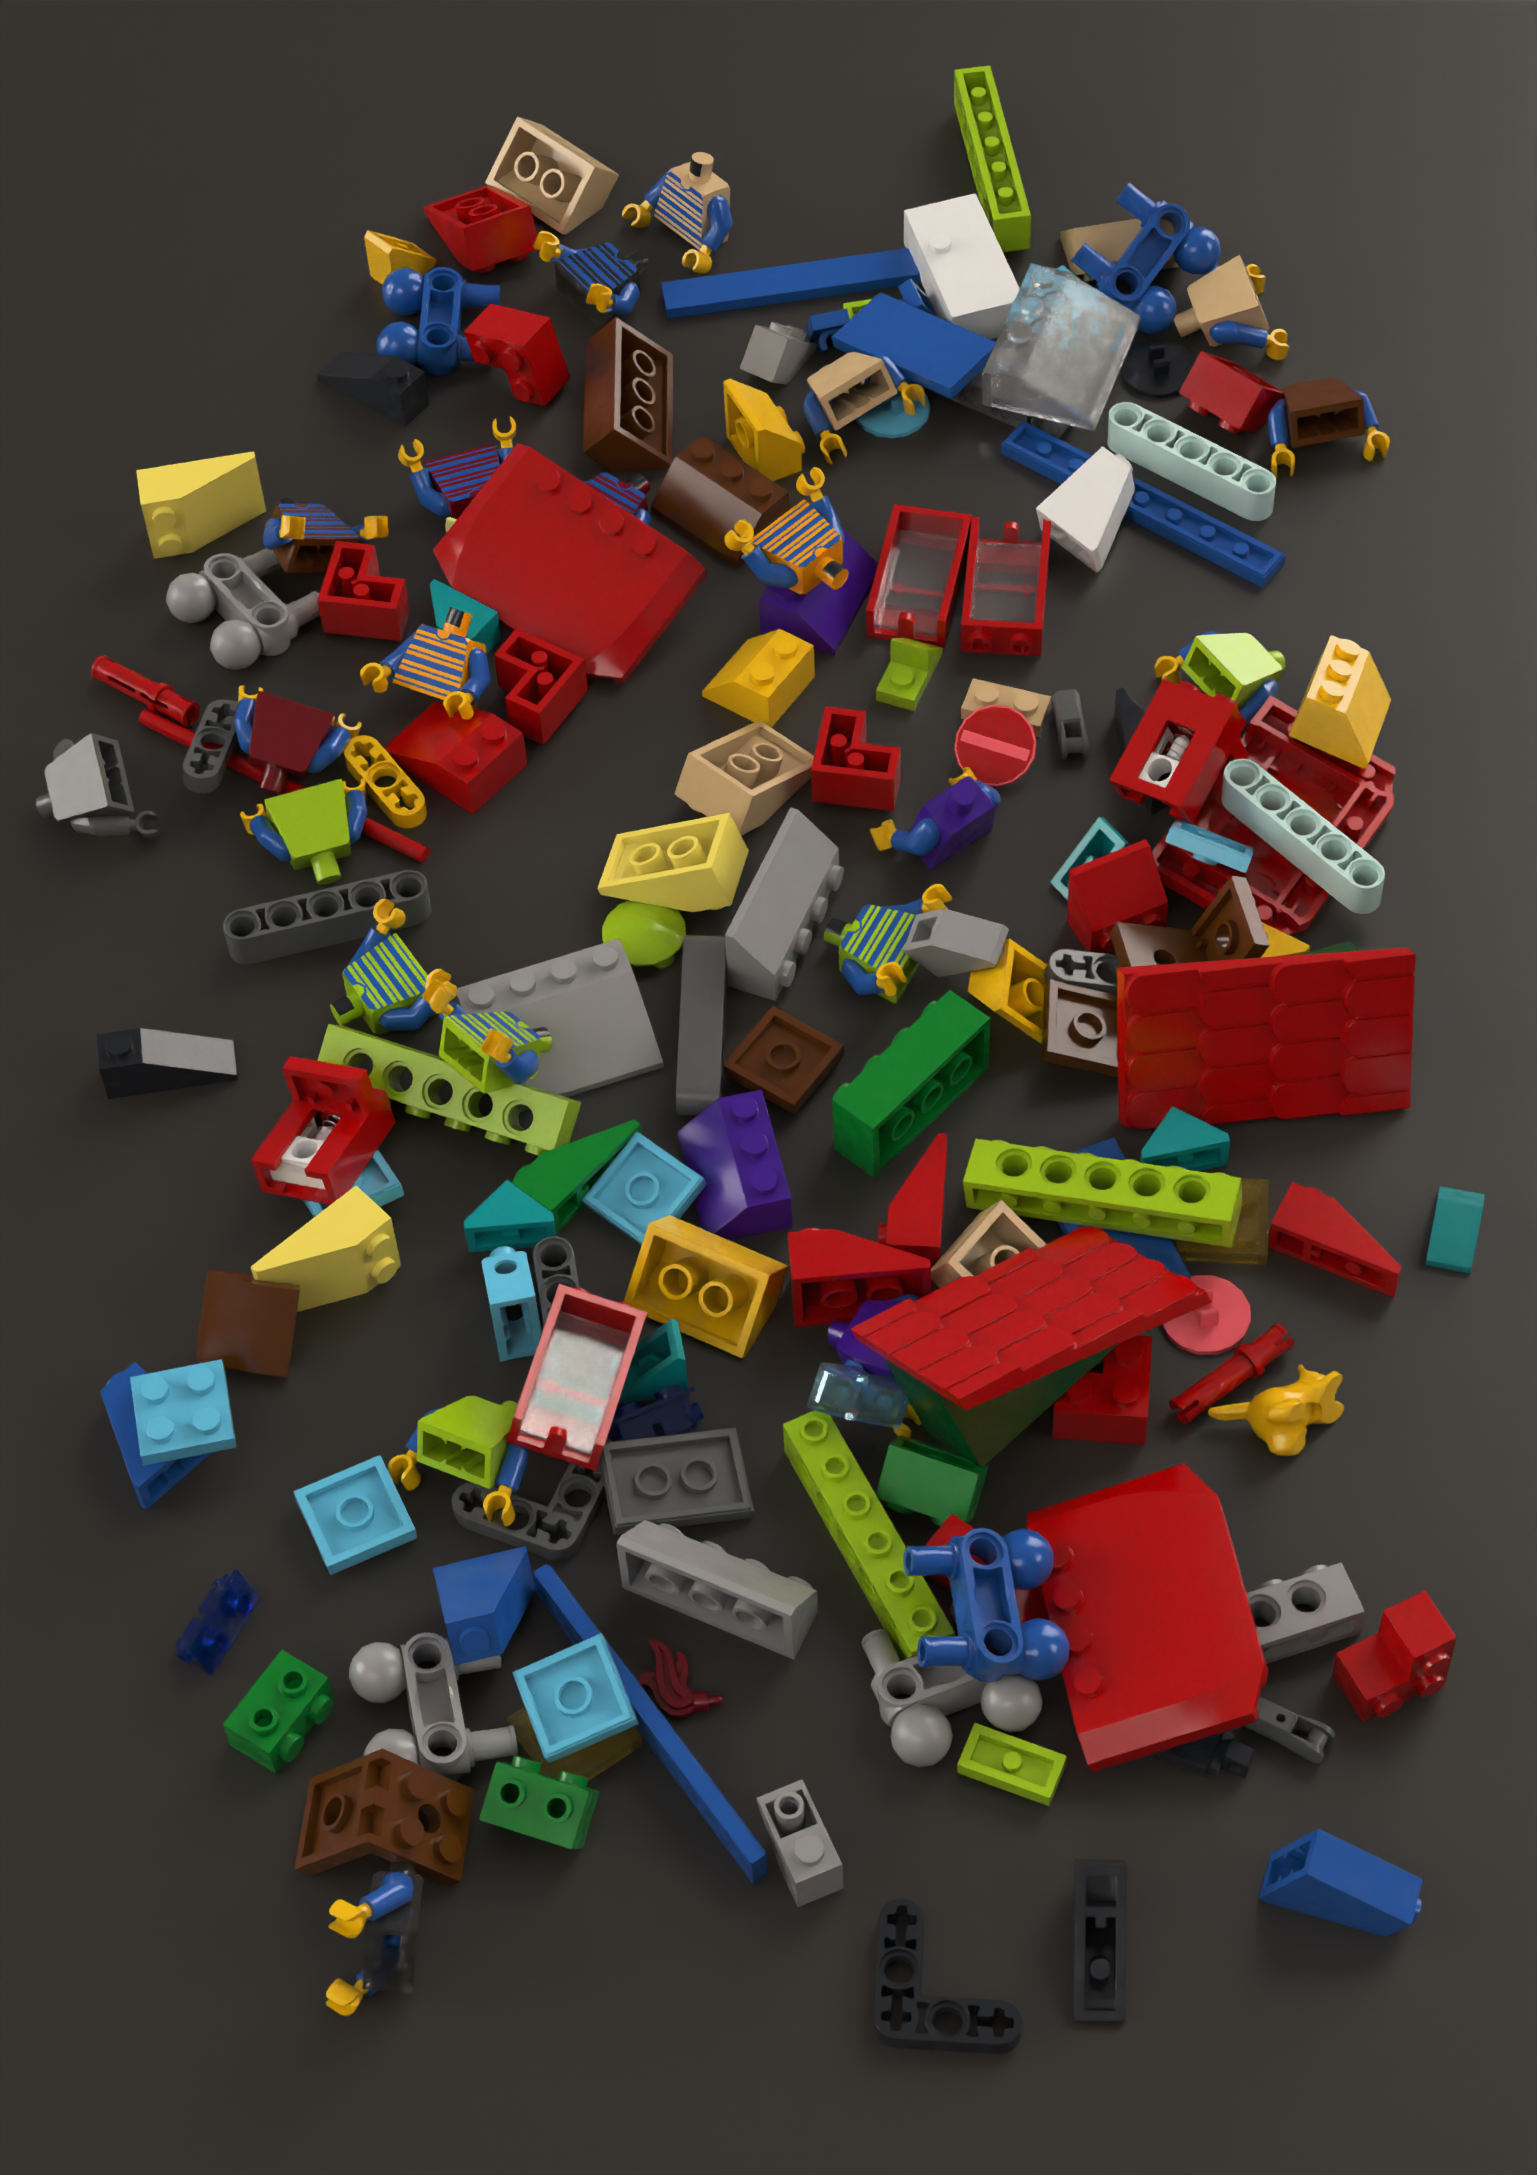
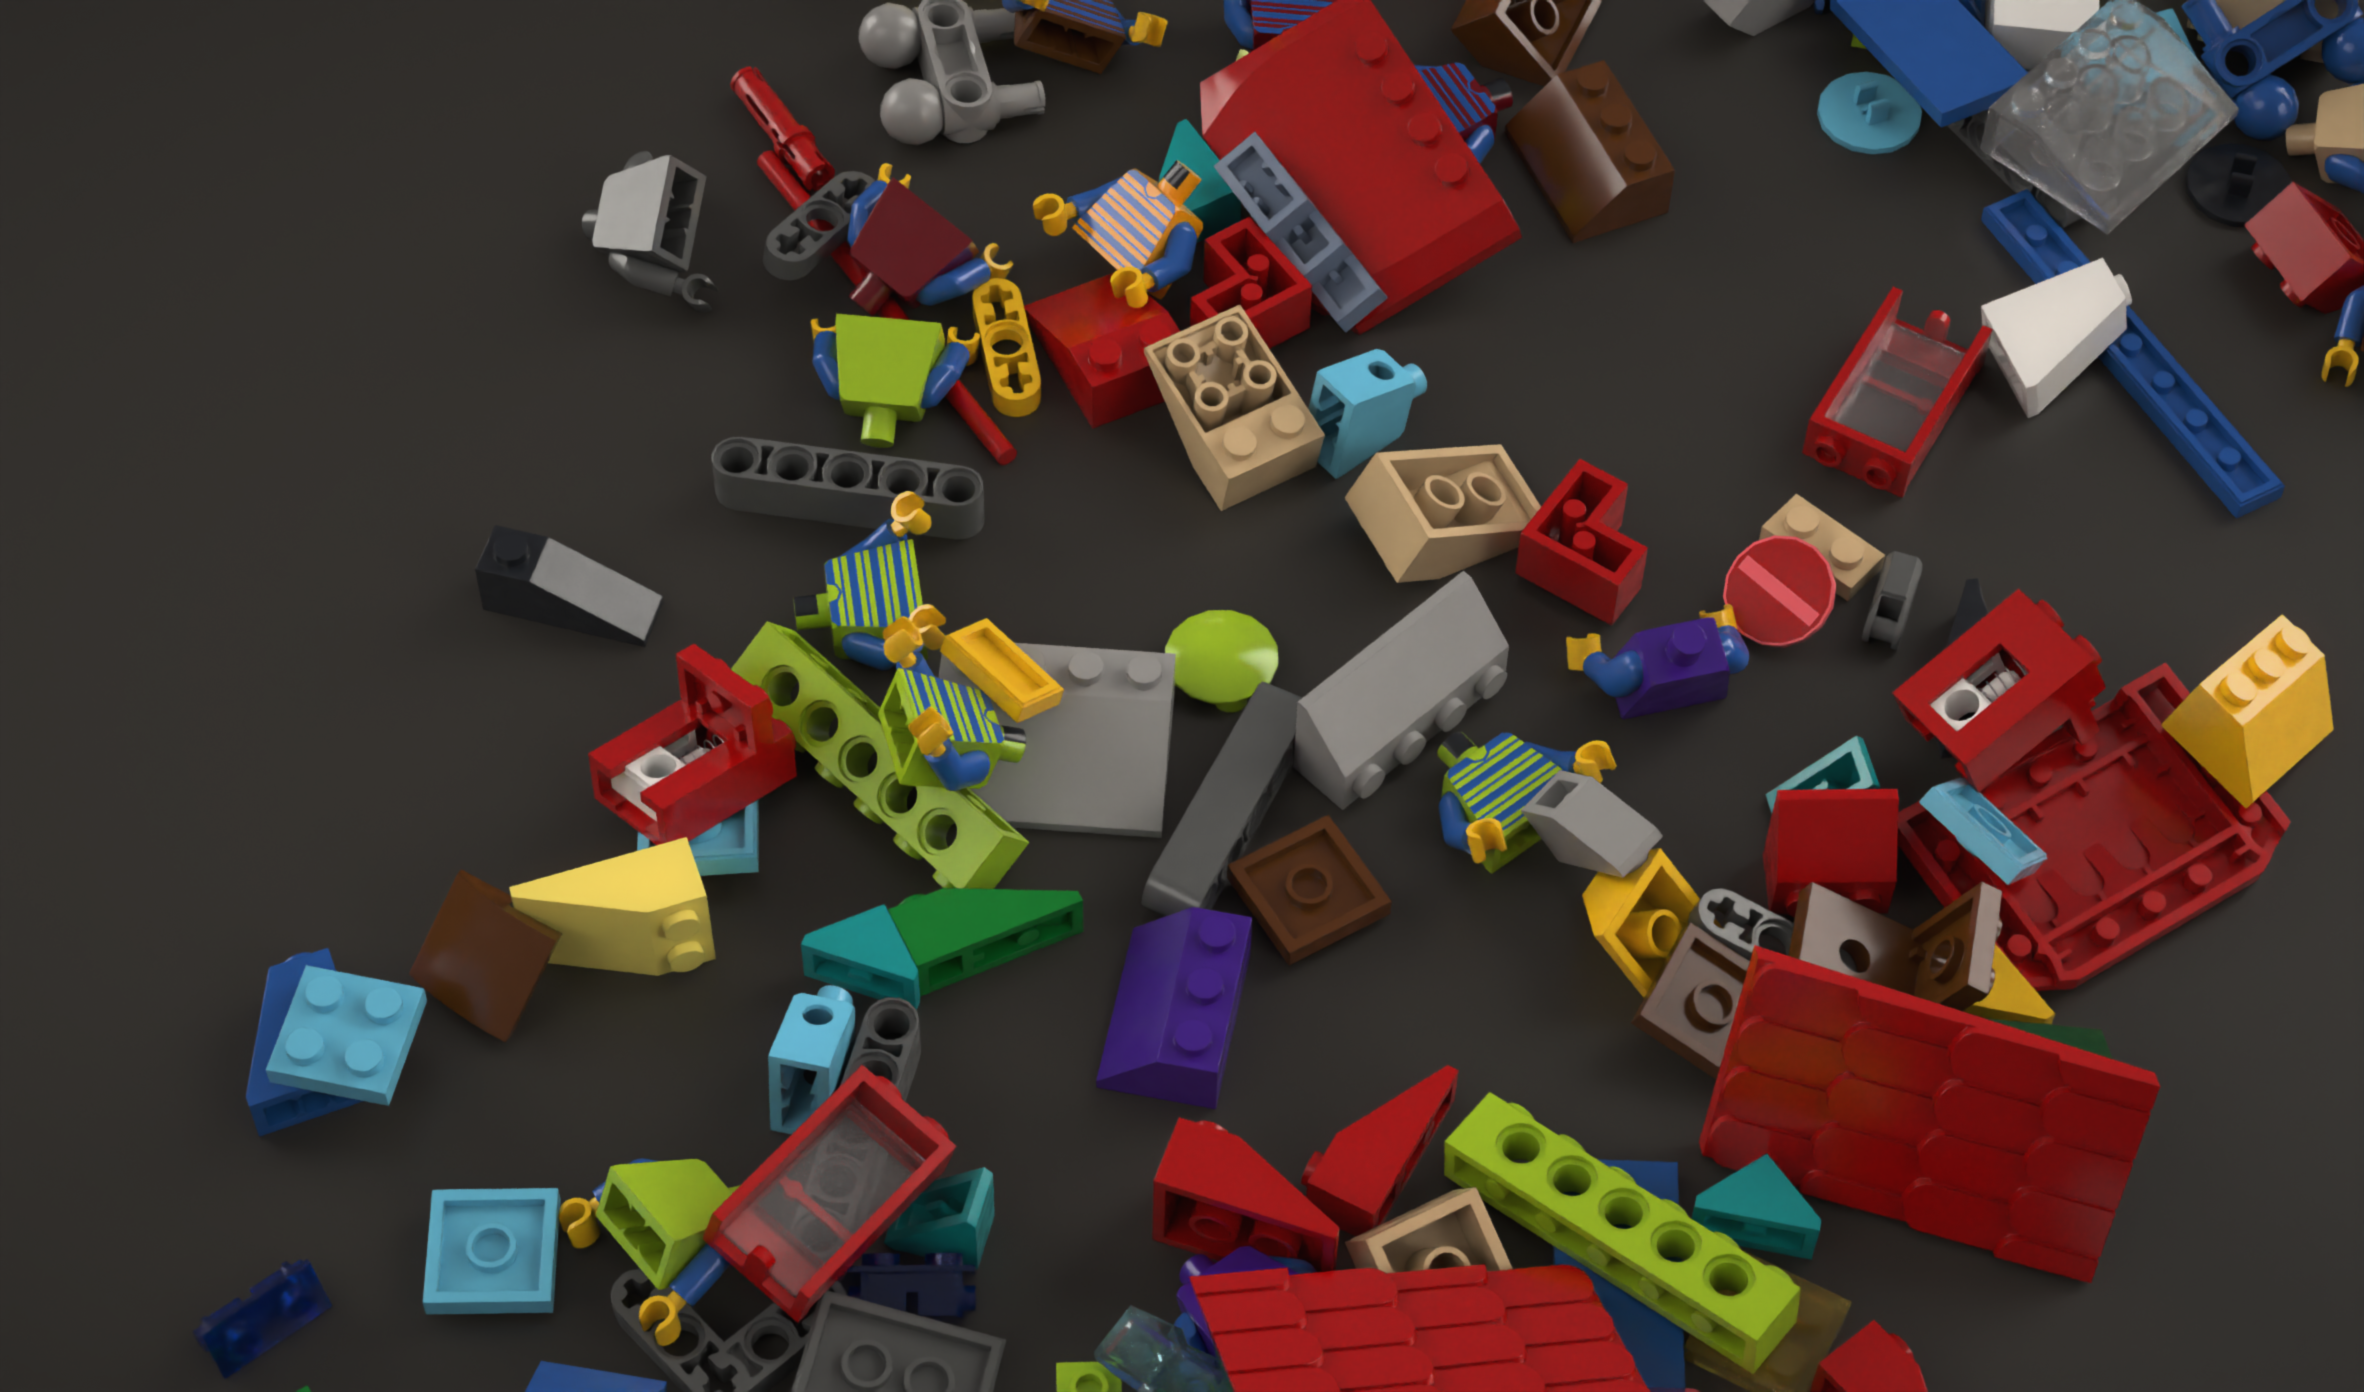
camera: 20 degrees right, 0 degrees up
(358, 599) = (1088, 108): red brick -> none
(511, 992) = (1002, 670): none -> yellow tile
(555, 624) = (1300, 231): none -> sand blue slope
(570, 761) = (1234, 407): none -> tan slope
(643, 1187) = (1050, 988): medium azure plate -> none
(654, 732) = (1362, 407): none -> medium azure torso
(677, 864) = (1302, 589): light yellow slope -> none
(705, 1284) = (1061, 1138): yellow slope -> none
(761, 431) = (1684, 84): yellow slope -> none
(764, 677) = (1533, 393): yellow slope -> none
(798, 546) = (1644, 243): torso -> none
(823, 613) = (1656, 305): dark purple slope -> none
(849, 390) = (1821, 70): tan torso -> none
(907, 672) = (1720, 454): lime slope -> none
(911, 1083) = (1446, 985): green brick -> none
(918, 575) = (1790, 337): door -> none
(1191, 461) = (2219, 320): light aqua beam -> none
(1228, 666) = (2132, 612): lime torso -> none
(1302, 836) = (2114, 888): light aqua beam -> none

